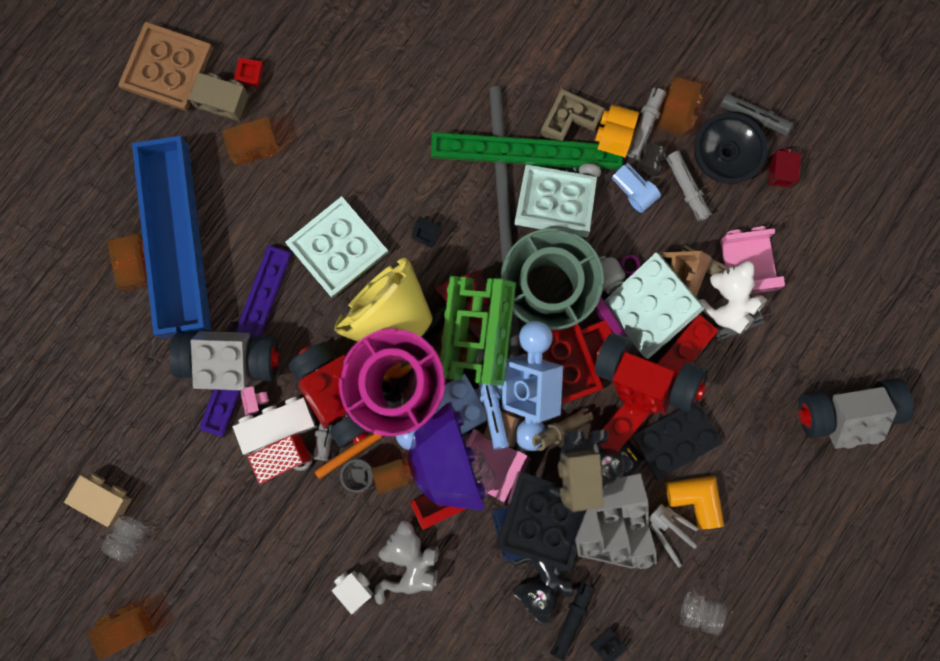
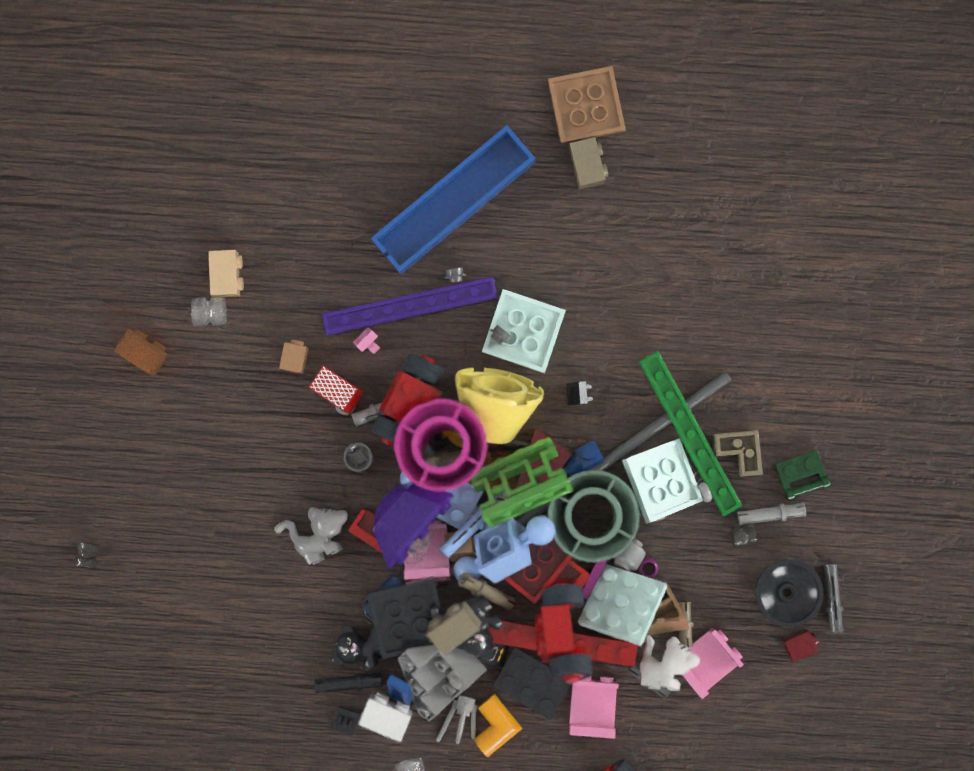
camera: 55 degrees right, 5 degrees up
(128, 263) = (415, 180): clear orange brick -> none
(222, 481) = (294, 357): none -> medium nougat brick
(223, 359) = (384, 301): brick -> none
(243, 279) = (454, 275): none -> dark grey plate
(249, 72) = (621, 173): red plate -> none
(251, 141) = (566, 211): clear orange brick -> none
(274, 425) = (358, 370): white brick -> none
(325, 269) = (499, 335): none -> dark grey plate
(346, 455) = (366, 437): orange bar -> none
(352, 590) = (272, 504): white brick -> none
(392, 476) = (373, 483): clear orange brick -> none
(491, 259) = (584, 459): none -> blue plate
(610, 574) = (399, 690): none -> blue plate
(618, 76) = (799, 468): none -> dark green plate
(618, 130) = (750, 495): light orange brick -> none
(629, 603) = (386, 716): none -> white brick
(640, 192) = (712, 541): light blue piece -> none
(679, 106) = (801, 533): clear orange brick -> none
(691, 191) = (738, 580): light grey pin -> none
(735, 395) = (593, 707): none -> bright pink panel

